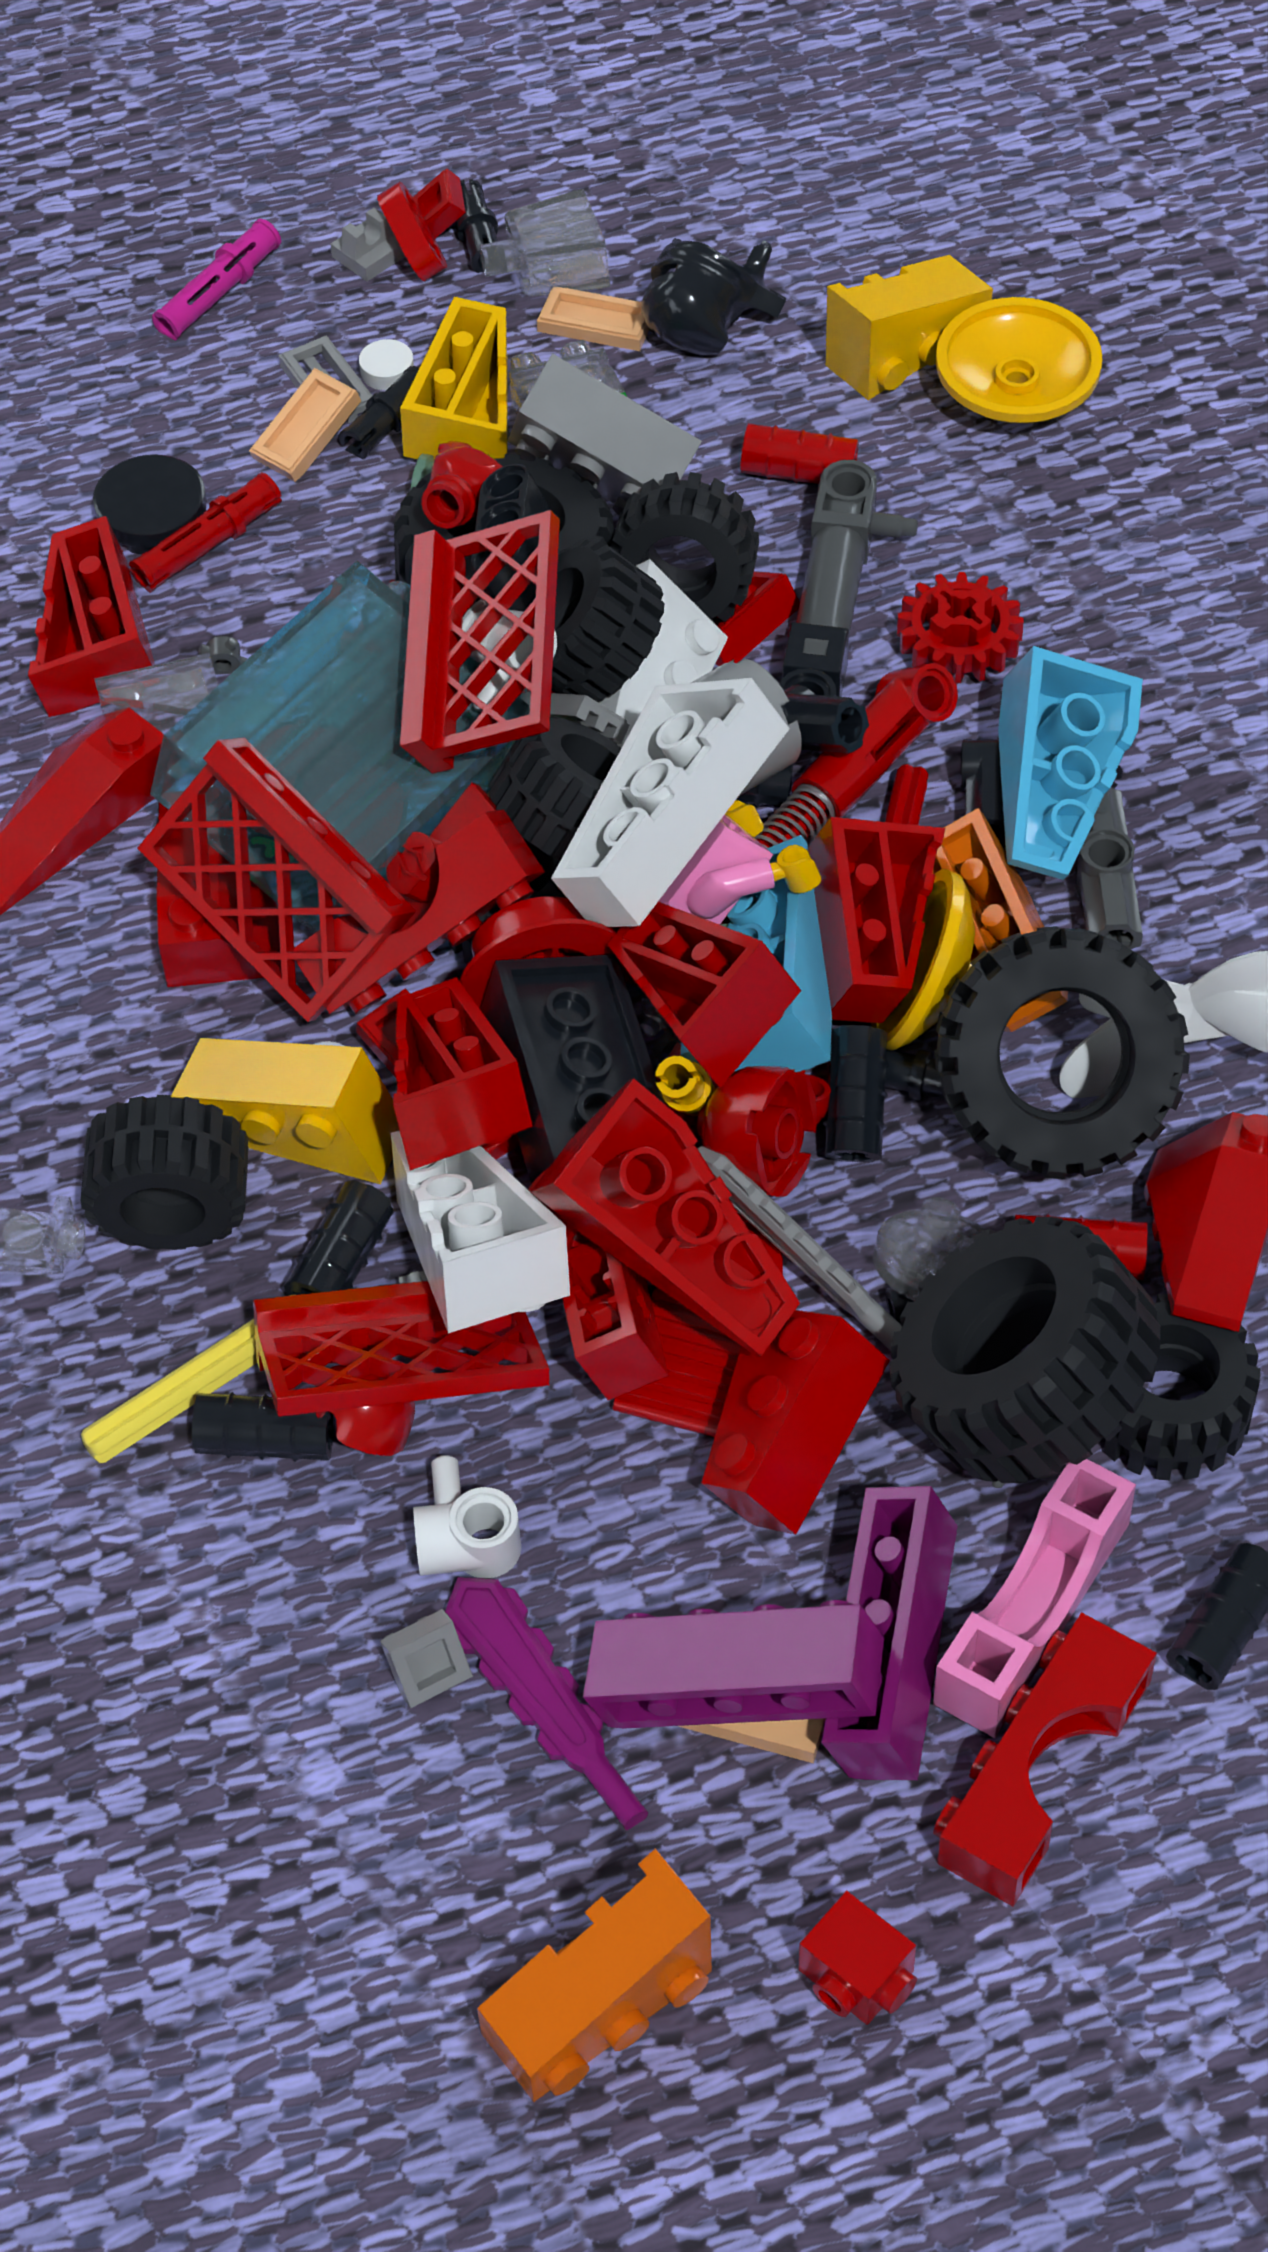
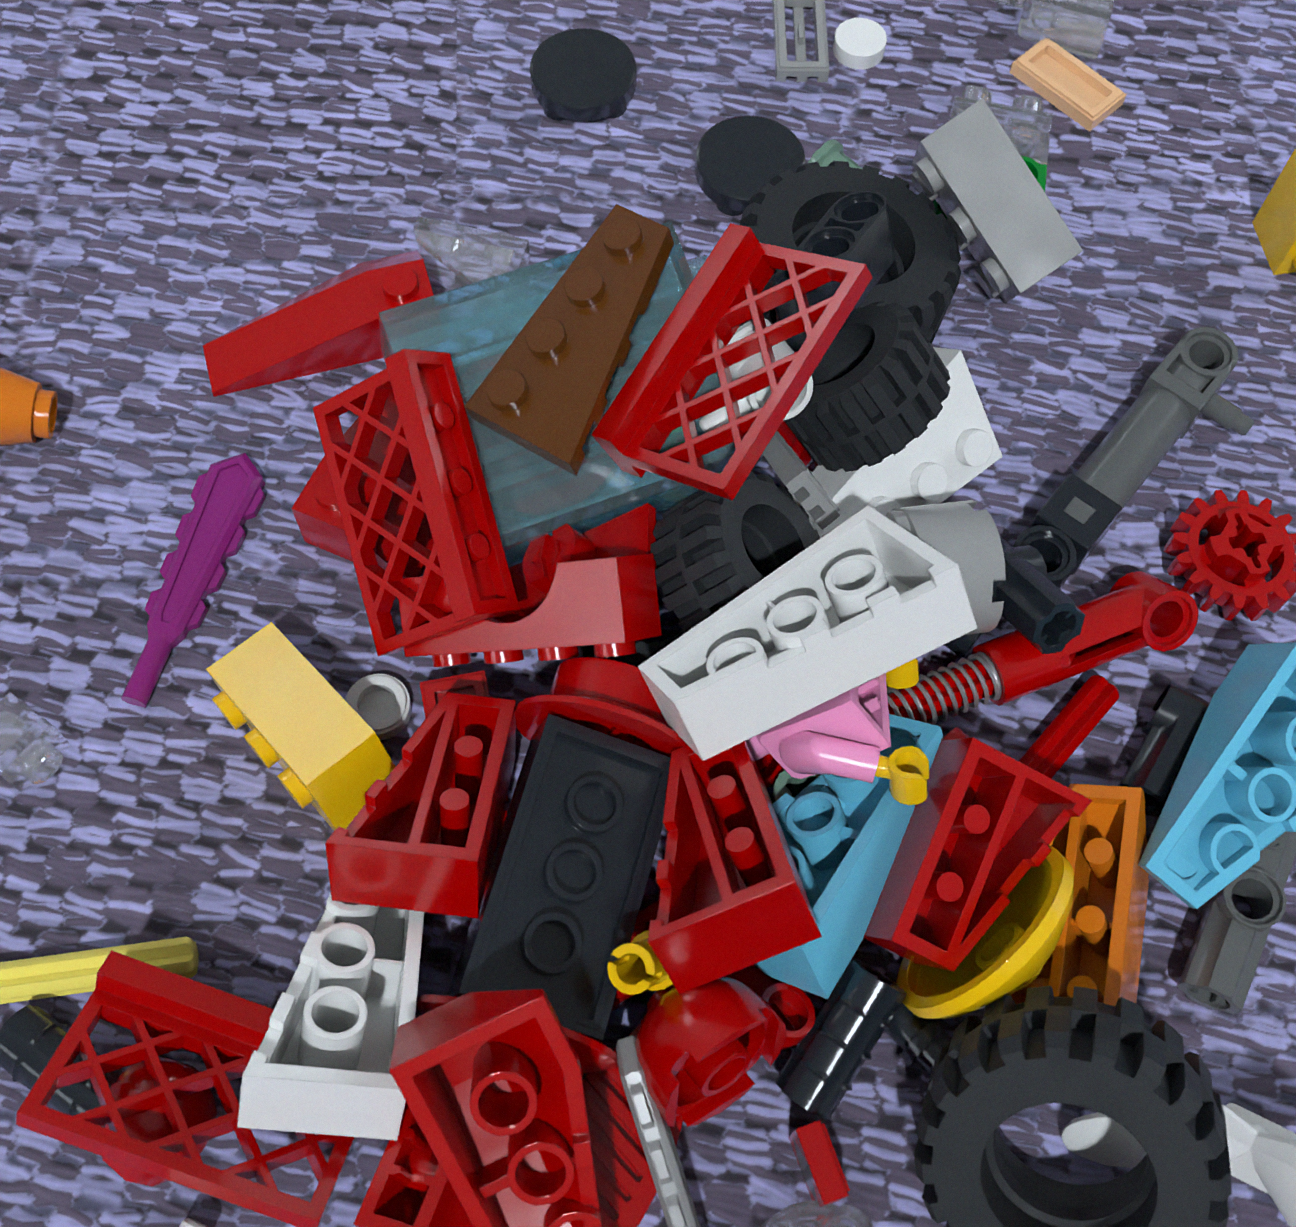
camera: 25 degrees right, 10 degrees up
(81, 1019) = (206, 538): none -> magenta sword
(88, 619) = (457, 158): red wedge -> none
(165, 1173) = (135, 753): black tyre -> none
(223, 519) = (623, 122): red pin -> none
(223, 653) = (550, 242): dark grey piece -> none
(305, 425) = (754, 66): light nougat tile -> none
(341, 1241) = (258, 914): black axle -> none
(342, 691) = (562, 361): none -> reddish brown wing
(353, 509) = (743, 156): none -> black tile
(379, 417) = (832, 86): black pin -> none
(456, 484) = (824, 179): red animal -> none
(461, 384) = (903, 94): yellow wedge -> none
(704, 295) = (1174, 103): black piece -> none
(704, 515) = (1037, 325): black tyre -> none
(765, 608) = (1040, 435): red slope -> none
(792, 453) = (1173, 297): red axle -> none
(889, 1183) = (819, 1163): none -> red tile

